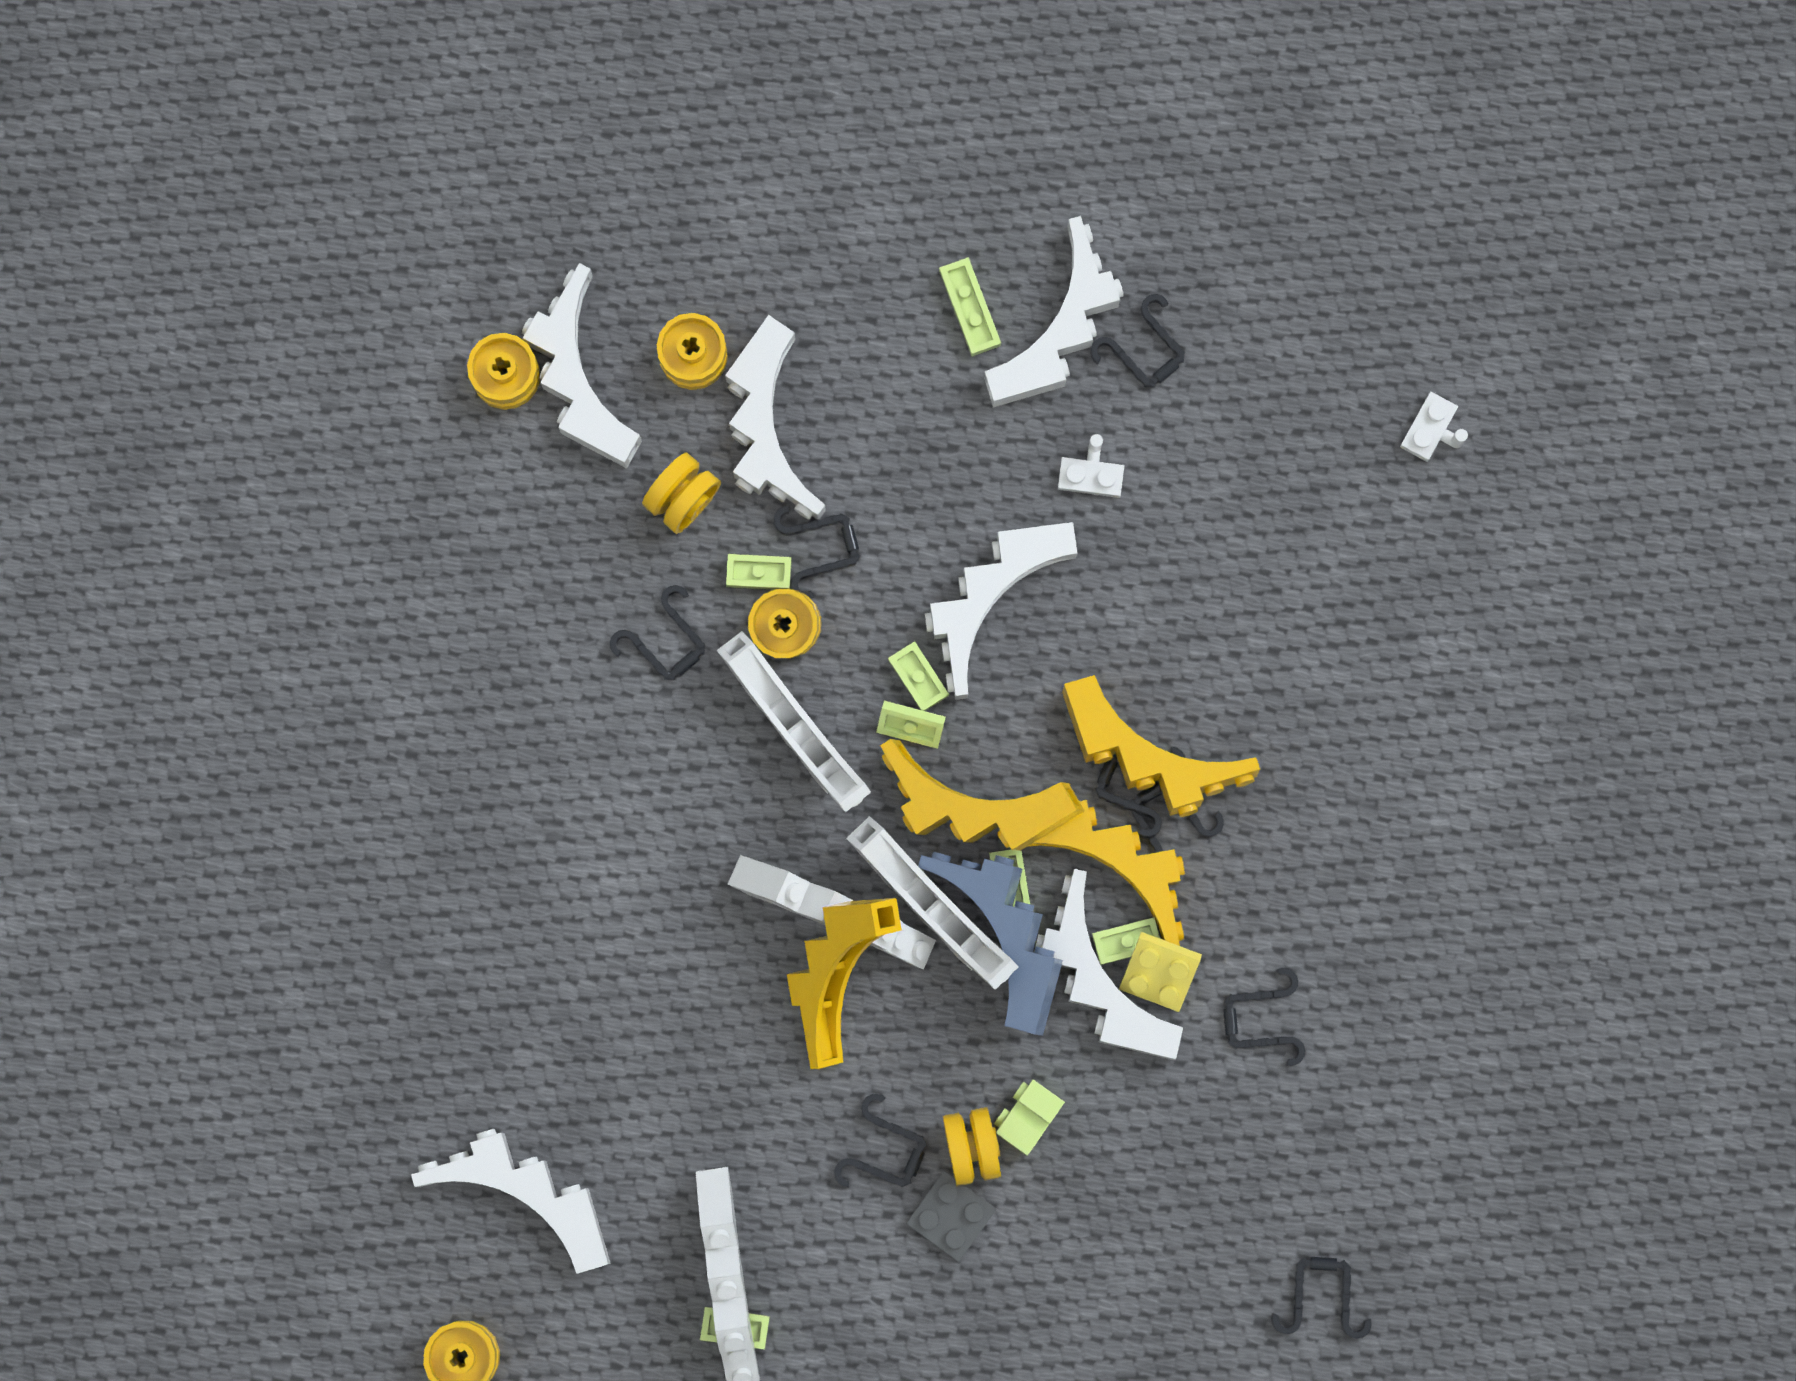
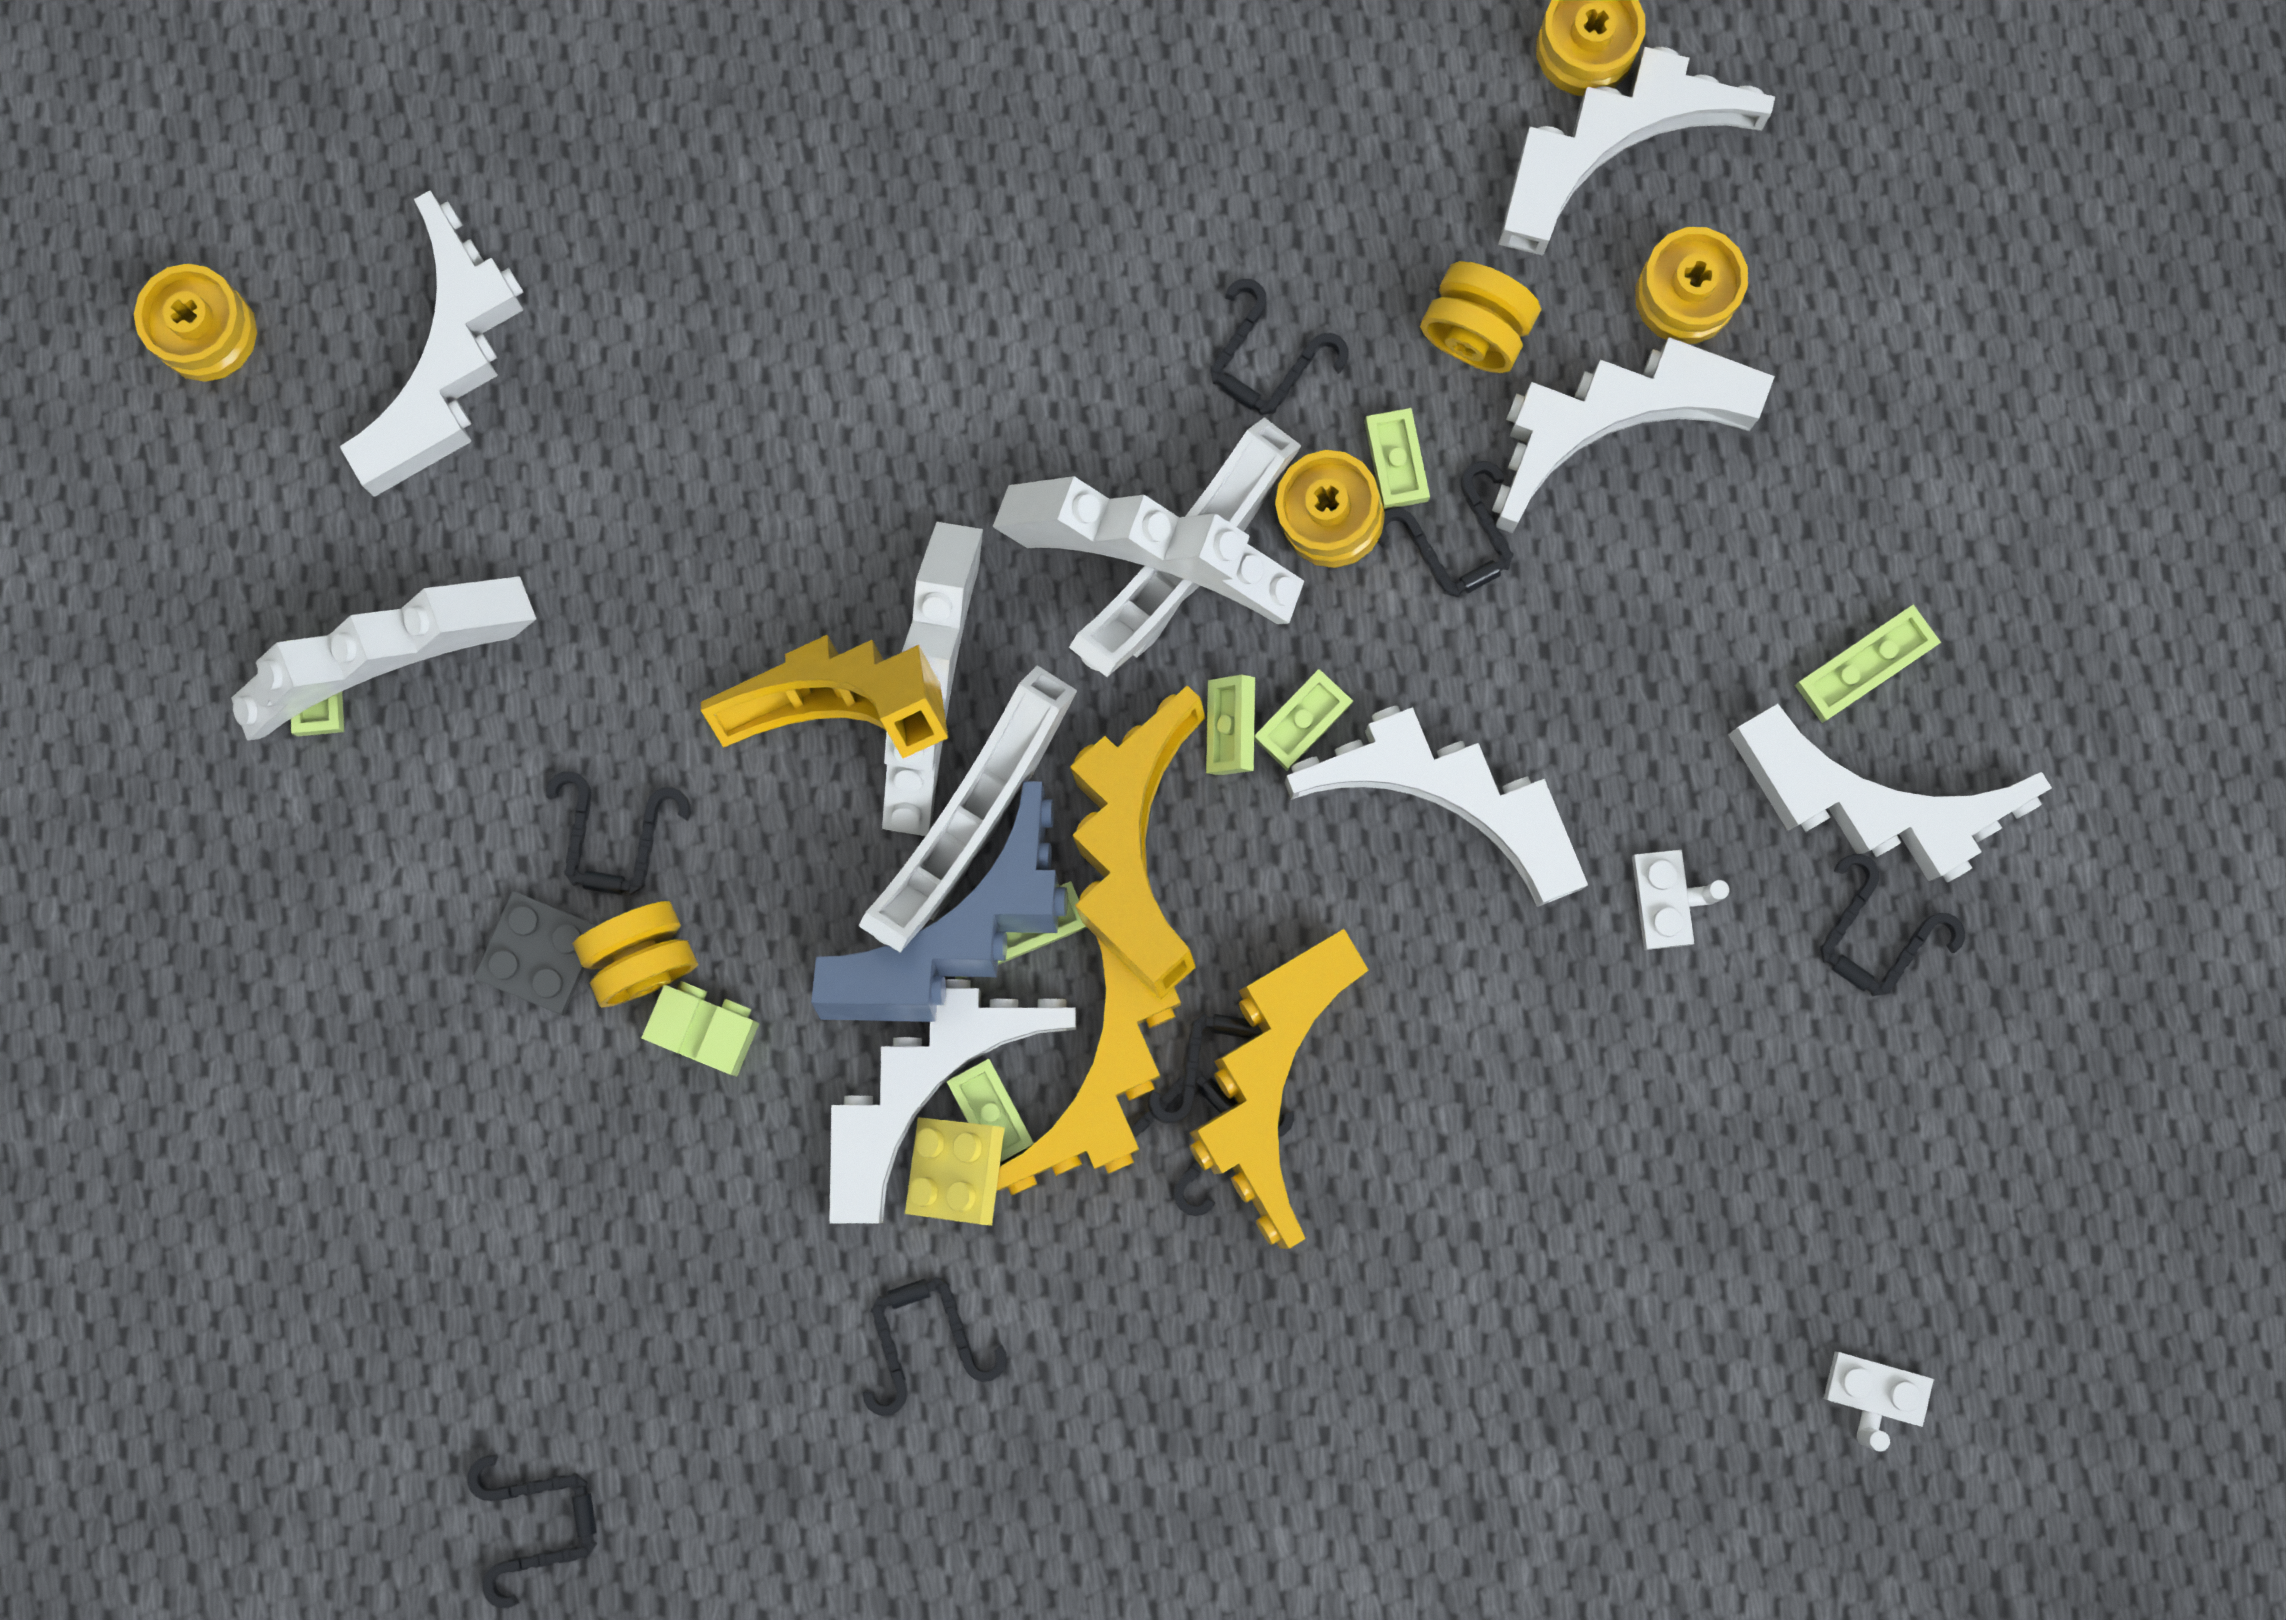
camera: 75 degrees right, 0 degrees up
(778, 746) = (1139, 530): none -> white arch

